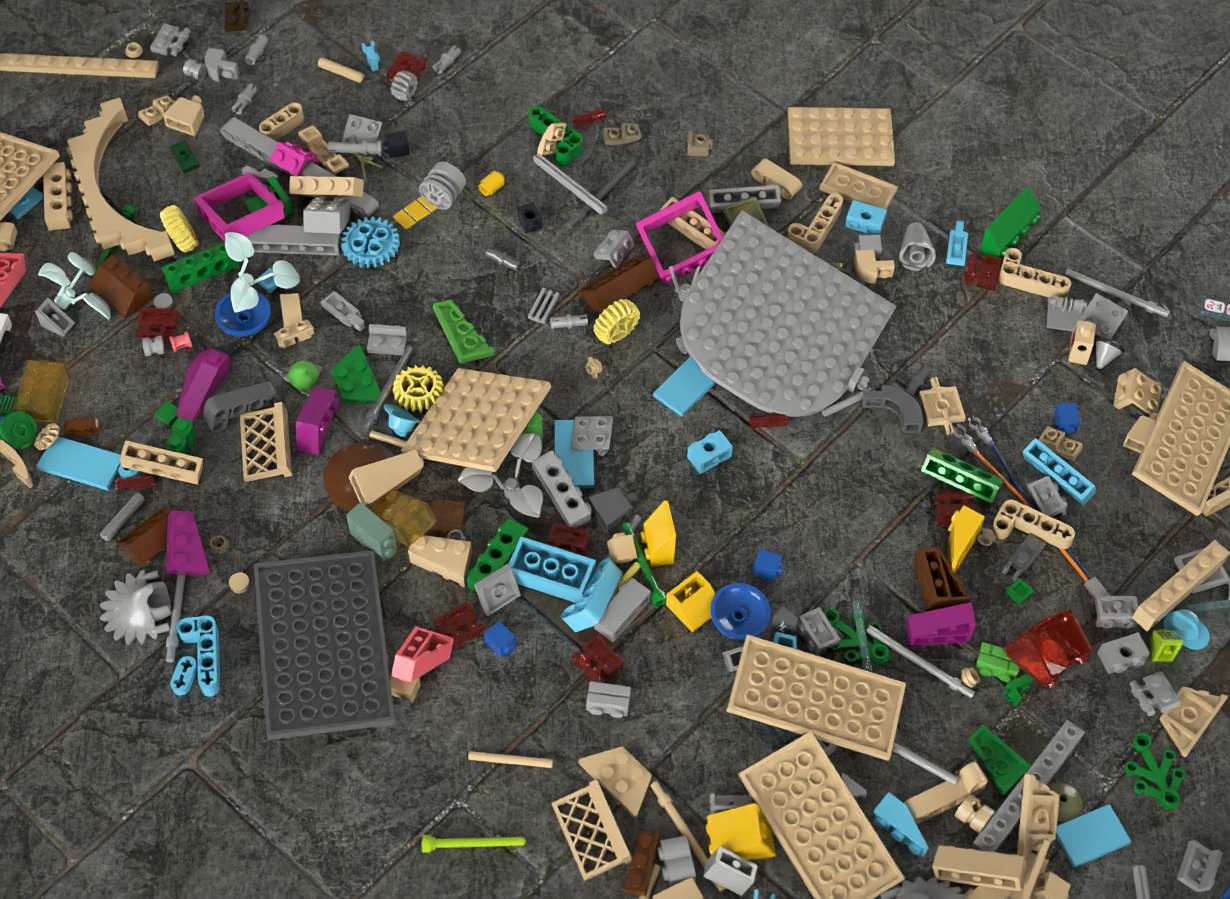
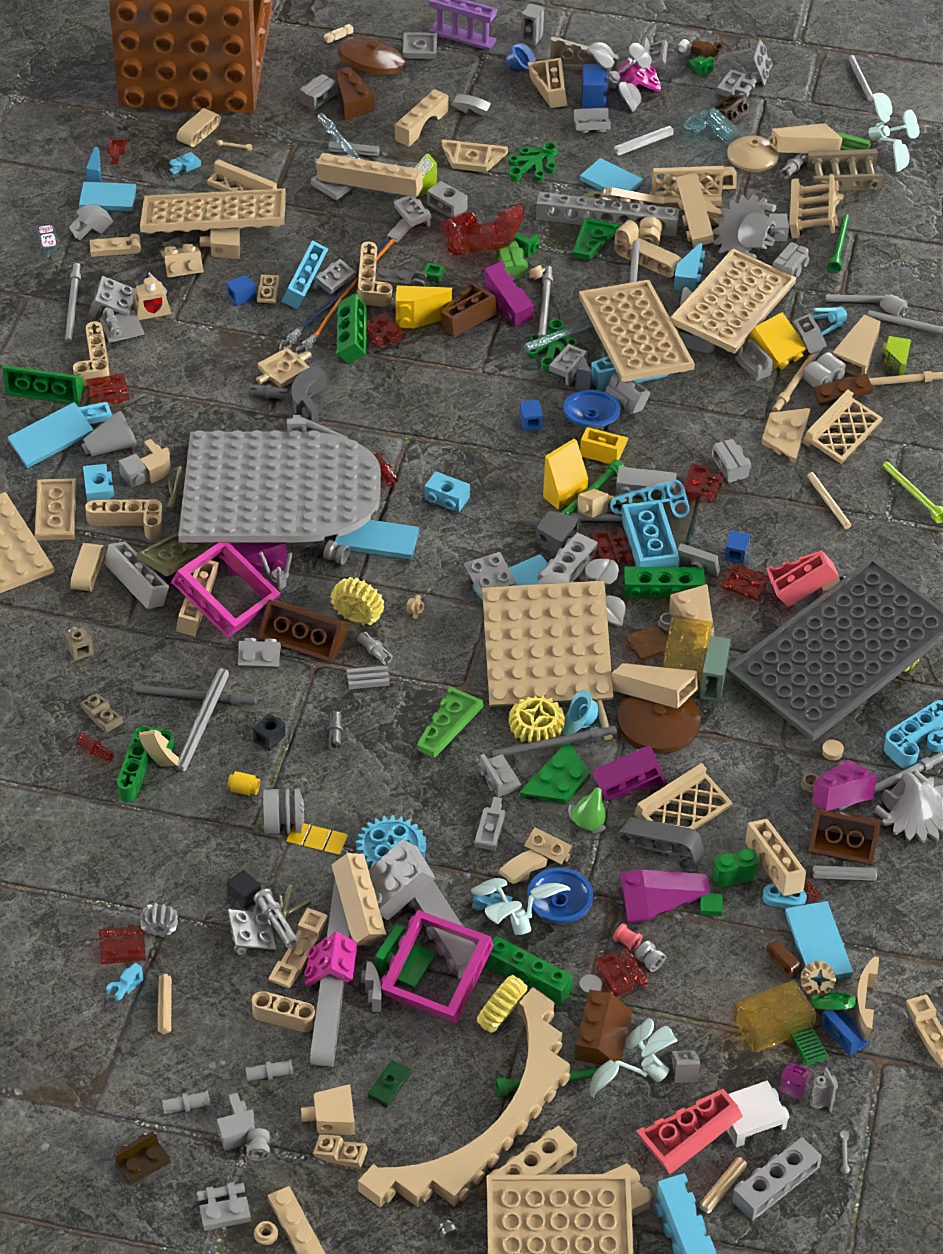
camera: 120 degrees left, 10 degrees down
(446, 59) = (87, 910): light grey pin -> none
(943, 209) = (50, 435): none -> medium azure tile
(1160, 690) = (466, 172): light grey plate -> none
(1185, 350) = (115, 246): none -> tan plate

